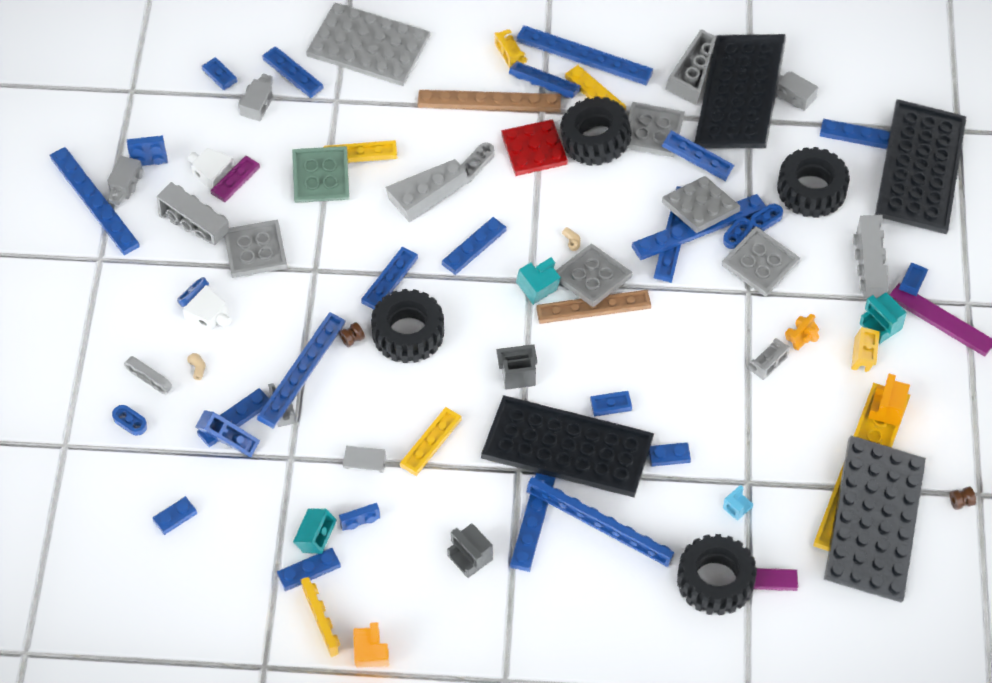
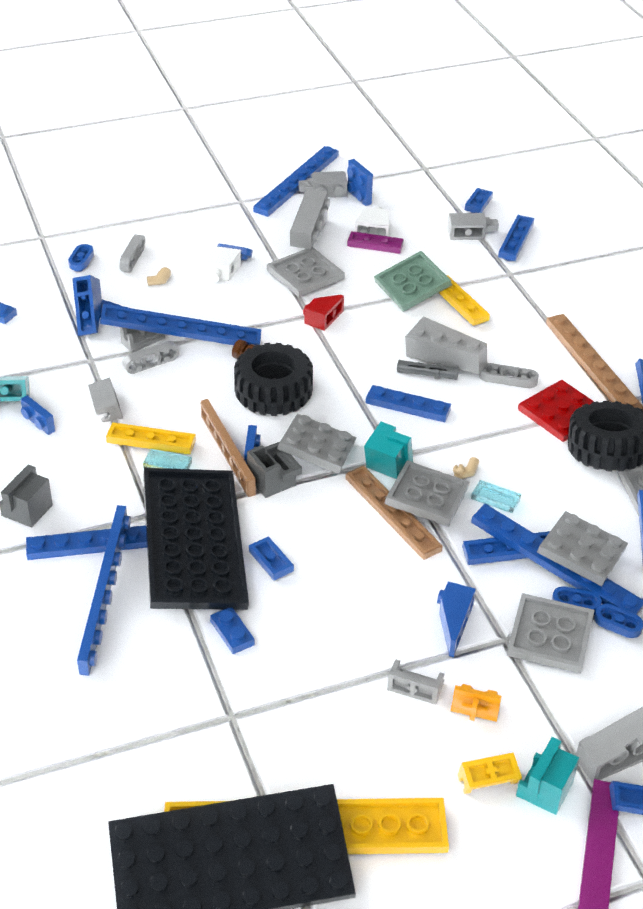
camera: 65 degrees right, 15 degrees down
(320, 408) = (163, 353): none -> light grey beam
(325, 257) = (323, 311): none -> red slope
(368, 44) = (591, 273): light grey plate -> none
(390, 277) = (336, 358): blue plate -> none
(447, 208) = (428, 369): none -> pin
(463, 439) = (164, 459): none -> clear light blue tile
(470, 389) = (228, 448): none -> medium nougat tile
(480, 373) = (252, 440): none -> blue plate
(504, 324) = (317, 443): none -> light grey plate
(610, 233) = (496, 496): none -> clear light blue tile
(711, 597) = (77, 738): black tyre -> none
(720, 310) = (455, 608): none -> blue slope
(737, 504) = (191, 709): medium azure panel -> none
(776, 579) = (95, 772): magenta tile -> none
(889, 401) = (411, 814): light orange plate -> none

